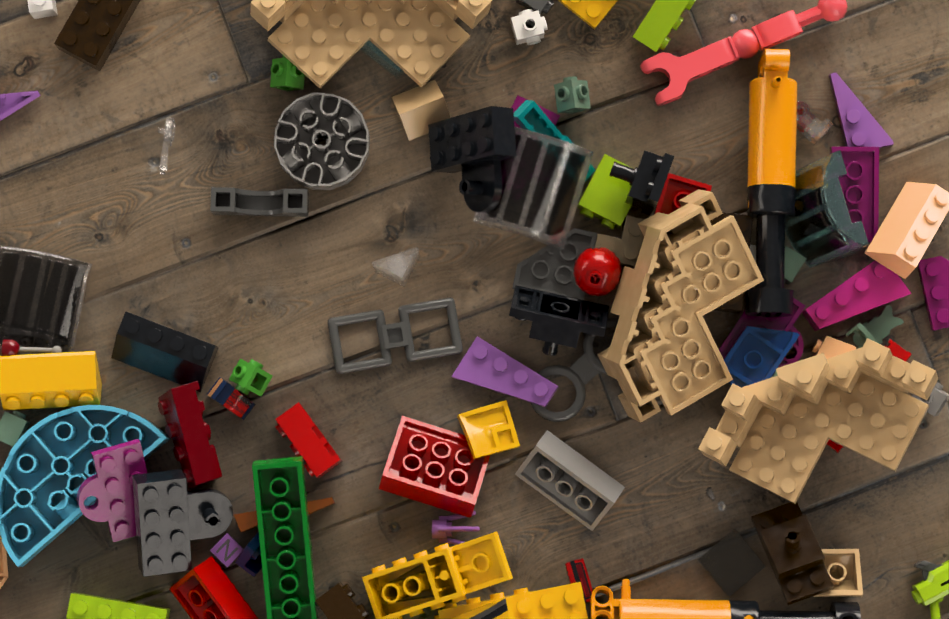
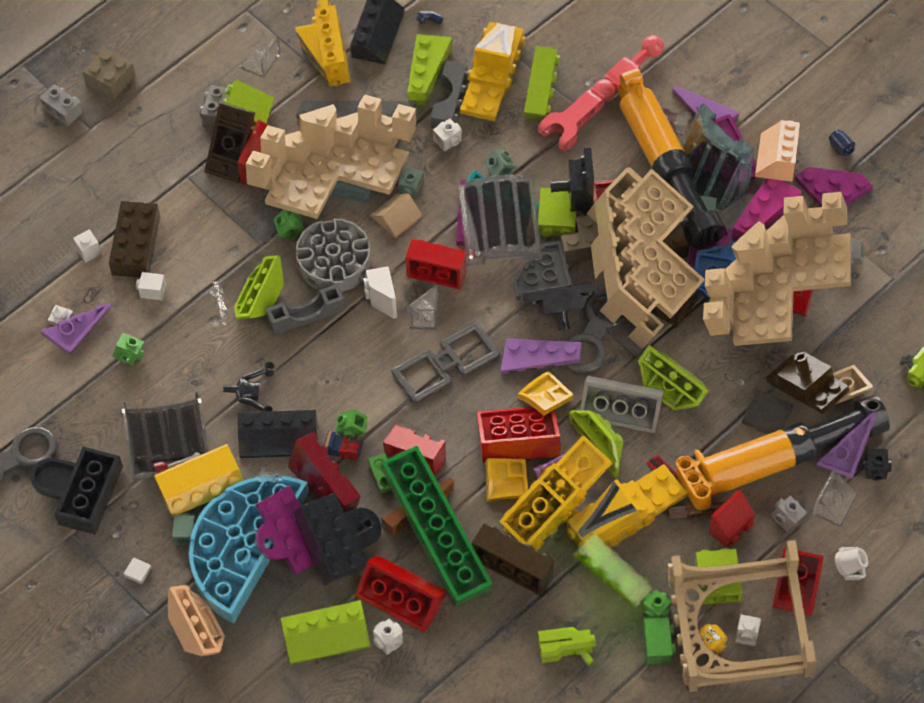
camera: 15 degrees left, 25 degrees down
(36, 168) = (128, 349): none -> bright green brick
(96, 89) = (151, 286): none -> white brick
(126, 401) = (266, 475): none -> clear piece
(153, 279) = (248, 391): none -> black piece
(216, 154) = (260, 289): none -> lime wedge
(227, 550) = (387, 550): medium lavender tile -> none
(249, 558) = (406, 540): dark blue bracket -> none
(259, 447) = (375, 468): none -> bright green leg
(356, 215) = (380, 291): none -> white slope
(396, 520) = (505, 479): none -> yellow plate
(436, 206) = (436, 263): none -> red brick
(456, 75) = (411, 182): none -> sand green brick
(475, 146) = (446, 211): black brick -> none
(526, 516) = (600, 434): none -> lime wedge
(597, 271) = (569, 266): red cylinder -> none
(639, 469) = (680, 386): none -> lime wedge

